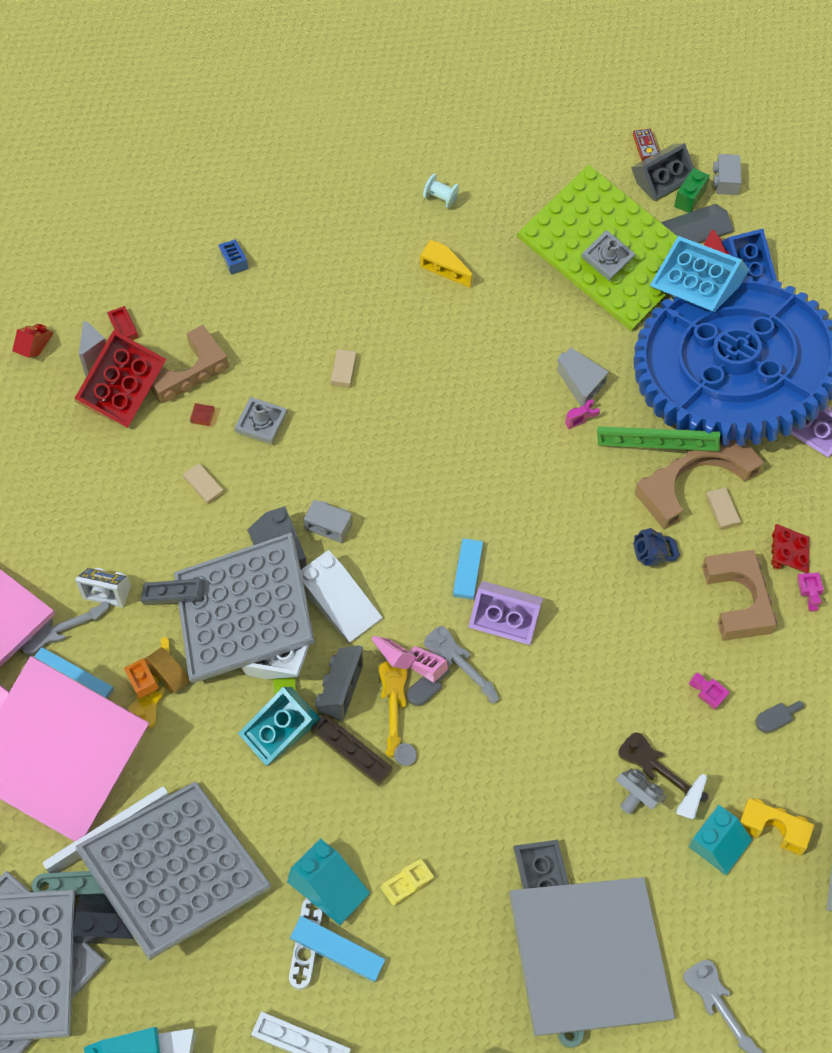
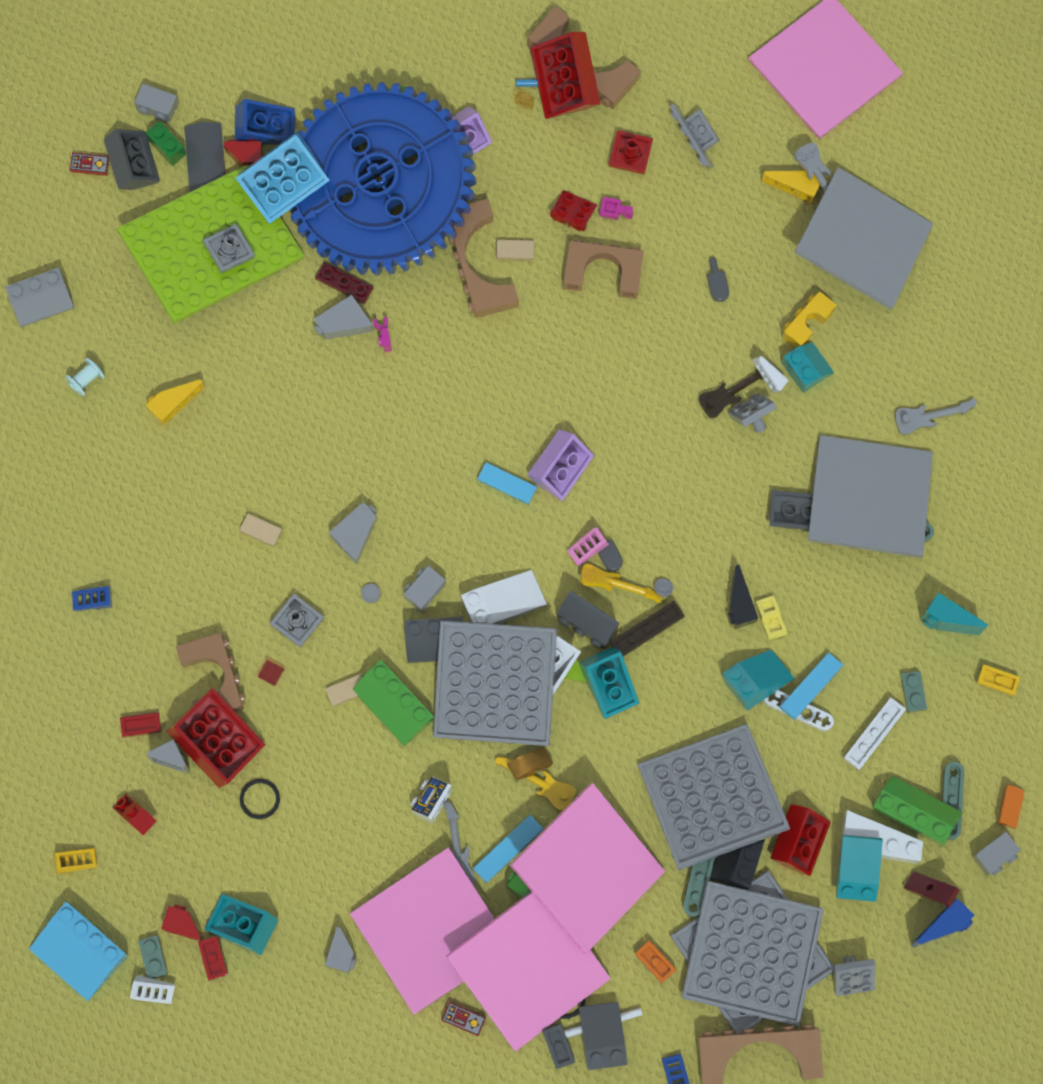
camera: 75 degrees left, 15 degrees up
(68, 426) = (255, 782): none -> black piece
(69, 854) = (661, 845): white tile -> none
(141, 678) = (532, 787): orange plate -> none
(148, 987) = (802, 843): none -> red slope
(172, 591) = (455, 741): dark grey tile -> none
(200, 526) = (393, 703): none -> bright green slope
(310, 478) = (370, 593): none -> light grey piece
(367, 444) = (355, 531): none -> light grey slope
(394, 653) = (573, 568): bright pink slope -> none
(412, 840) = (741, 606): none -> black slope
(443, 644) = (576, 526): light grey piece -> none
(504, 140) = (39, 297): none -> light grey slope
(620, 370) = (334, 277): none -> dark red tile
(652, 548) = (539, 323): dark blue piece -> none
(658, 438) = (436, 278): bright green tile -> none
(711, 692) = (682, 324): dark pink plate -> none

